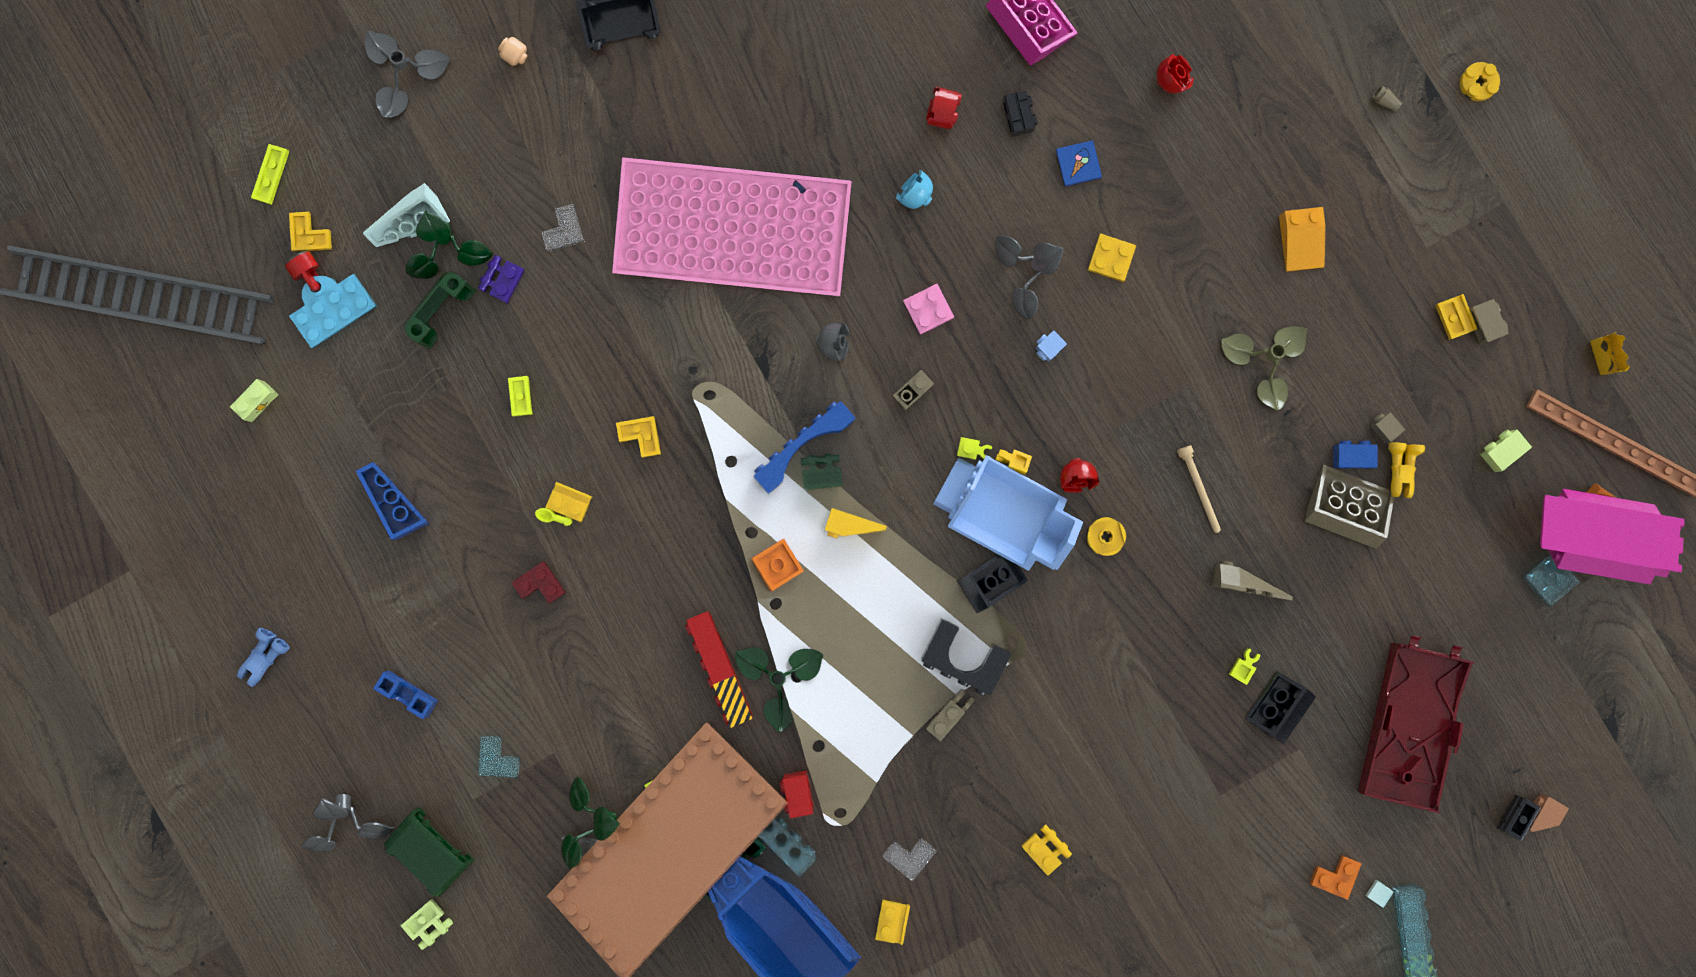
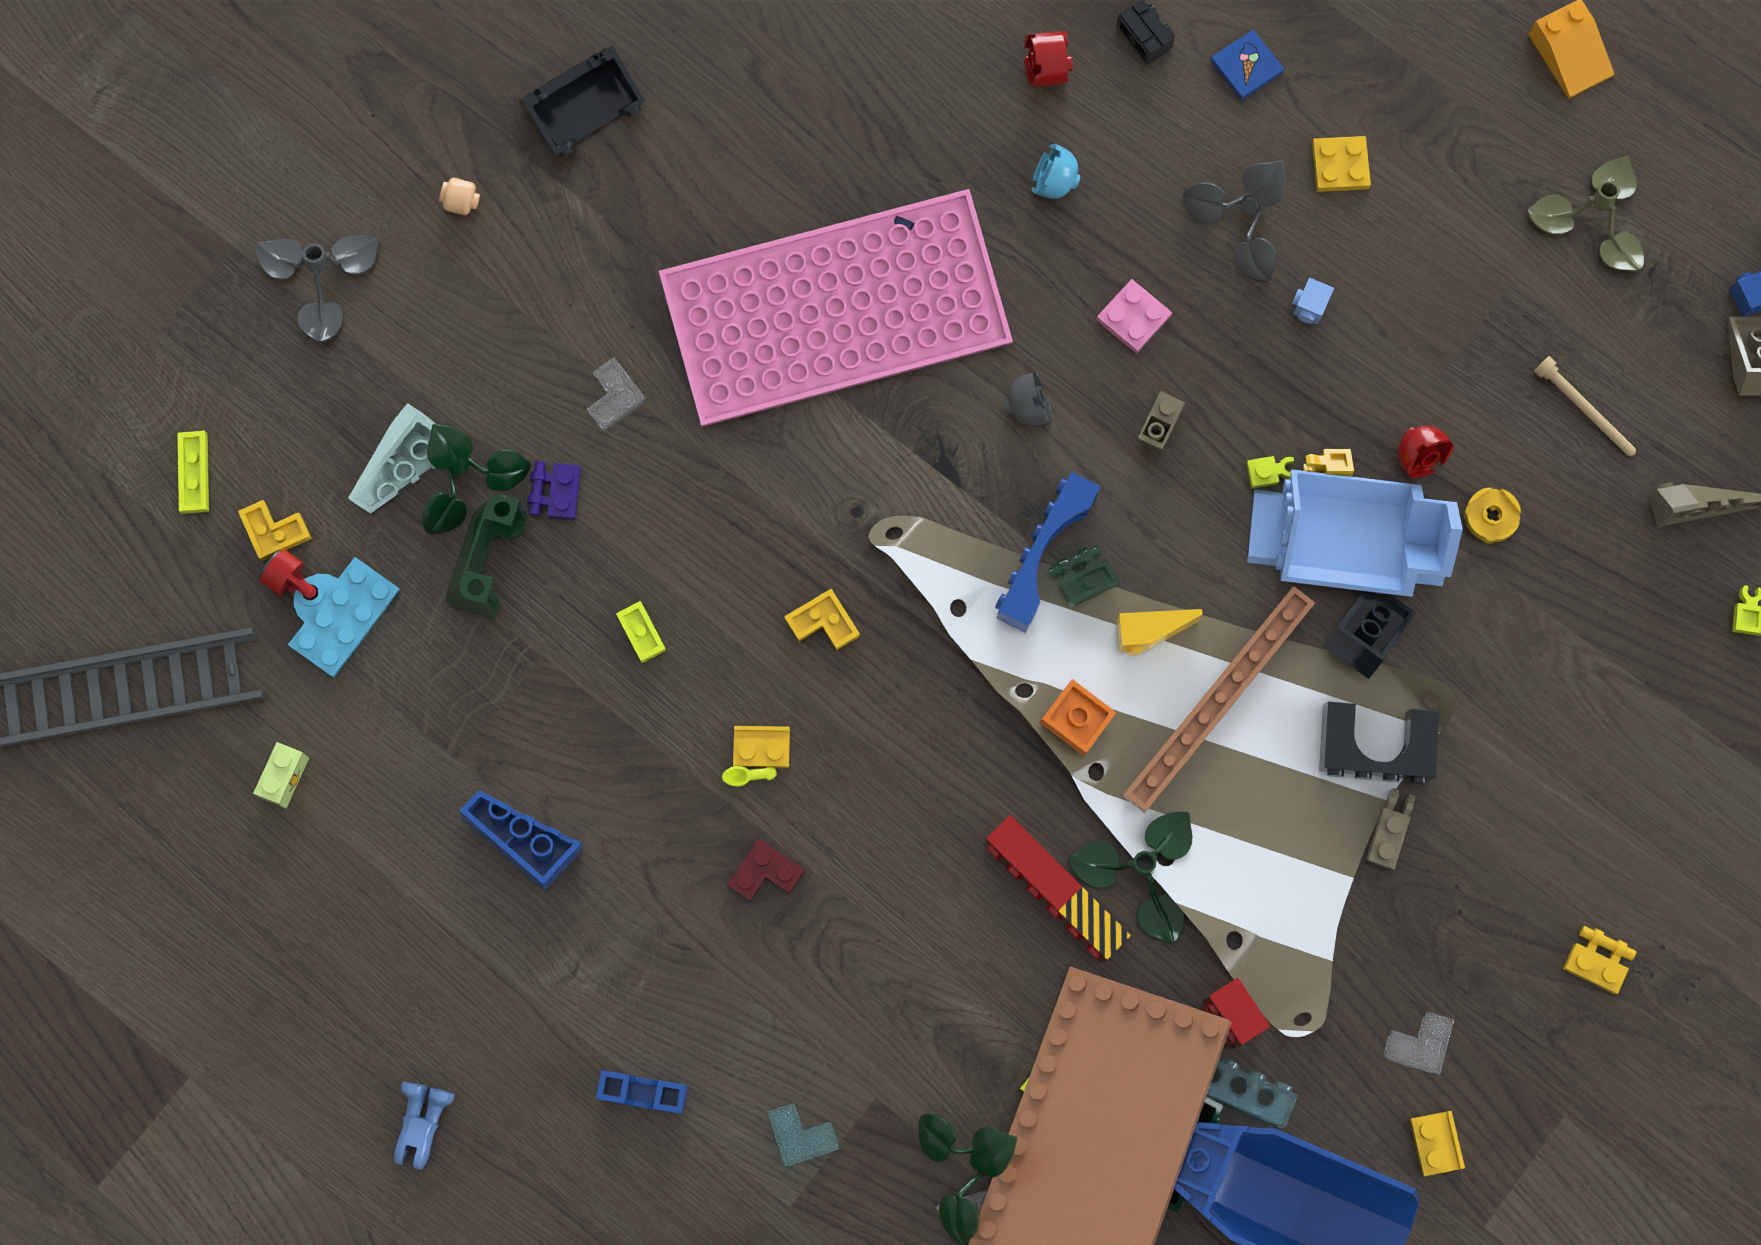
camera: 15 degrees left, 10 degrees down
(875, 588) = (1218, 699): none -> nougat plate

